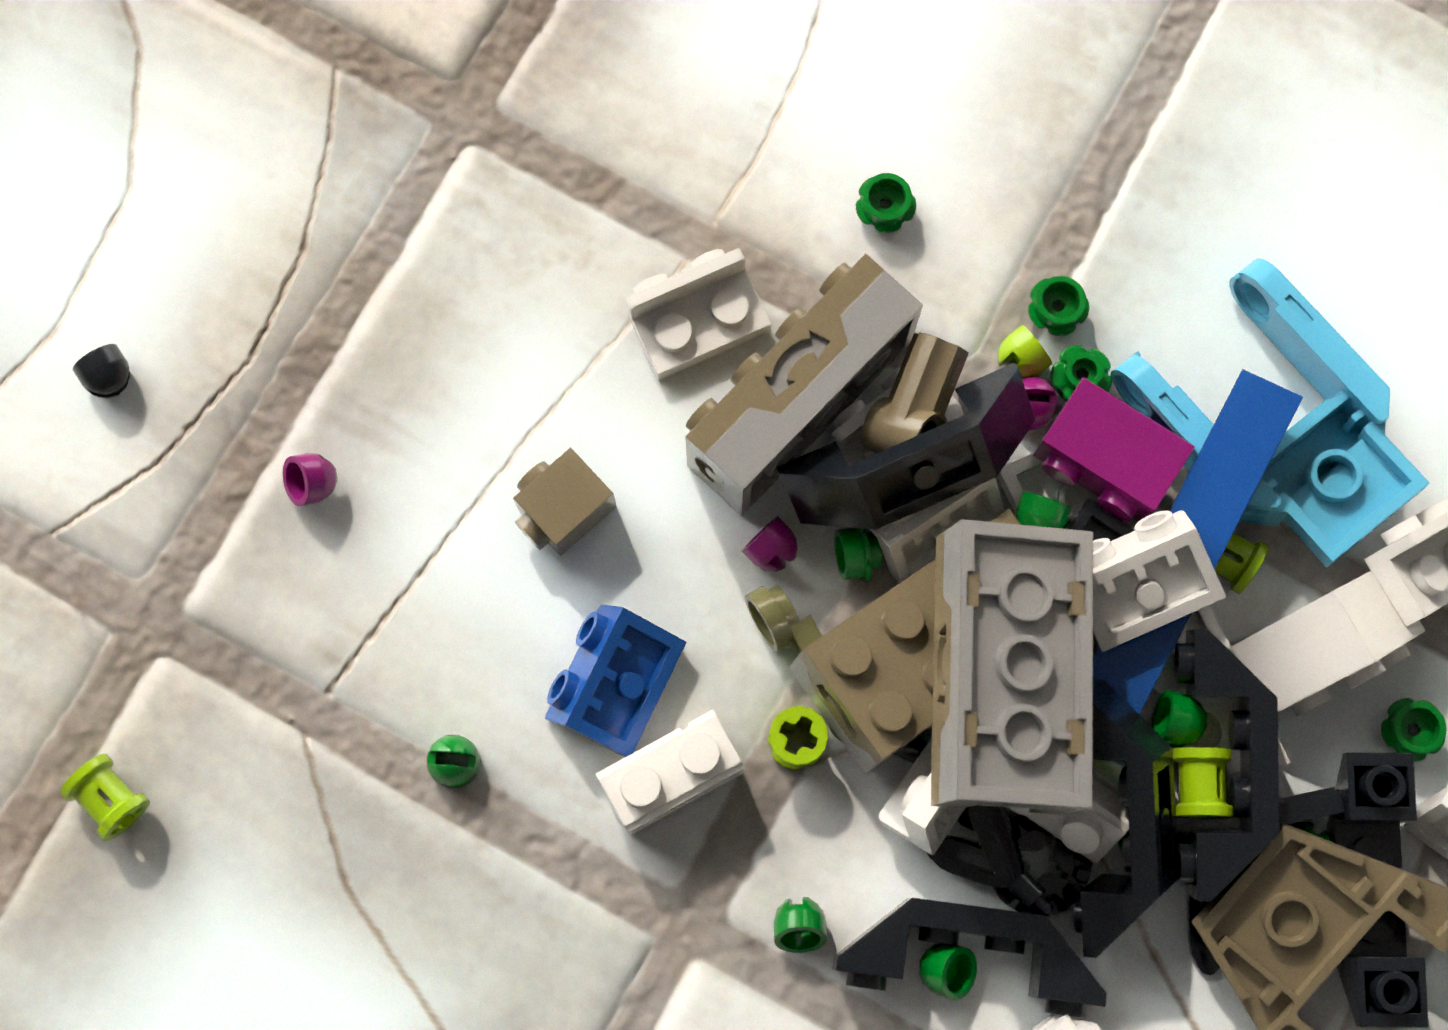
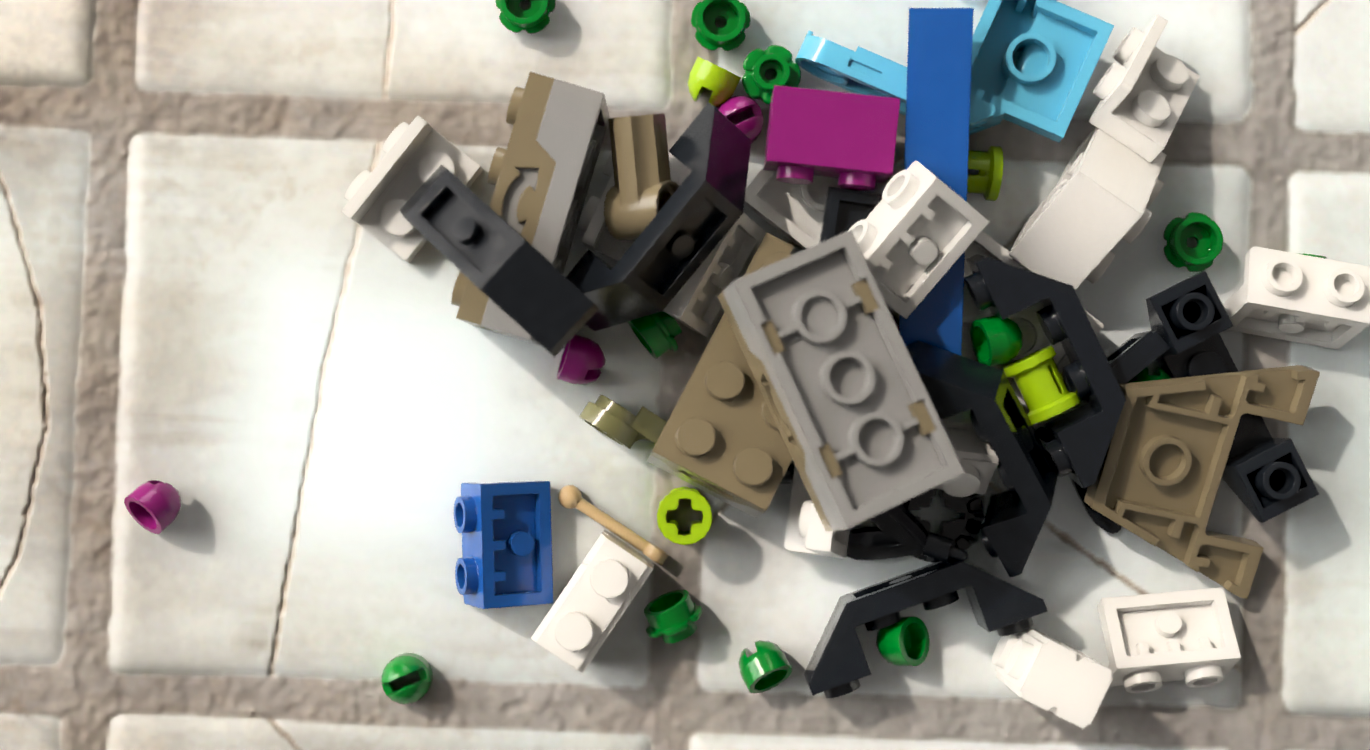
camera: 30 degrees left, 10 degrees up
(561, 502) = (380, 417): dark tan brick -> none
(697, 670) = (571, 497): none -> tan hinge
(736, 831) = (672, 616): none -> green plate
(754, 404) = (498, 260): none -> black slope
(1042, 511) = (797, 223): green hinge -> none

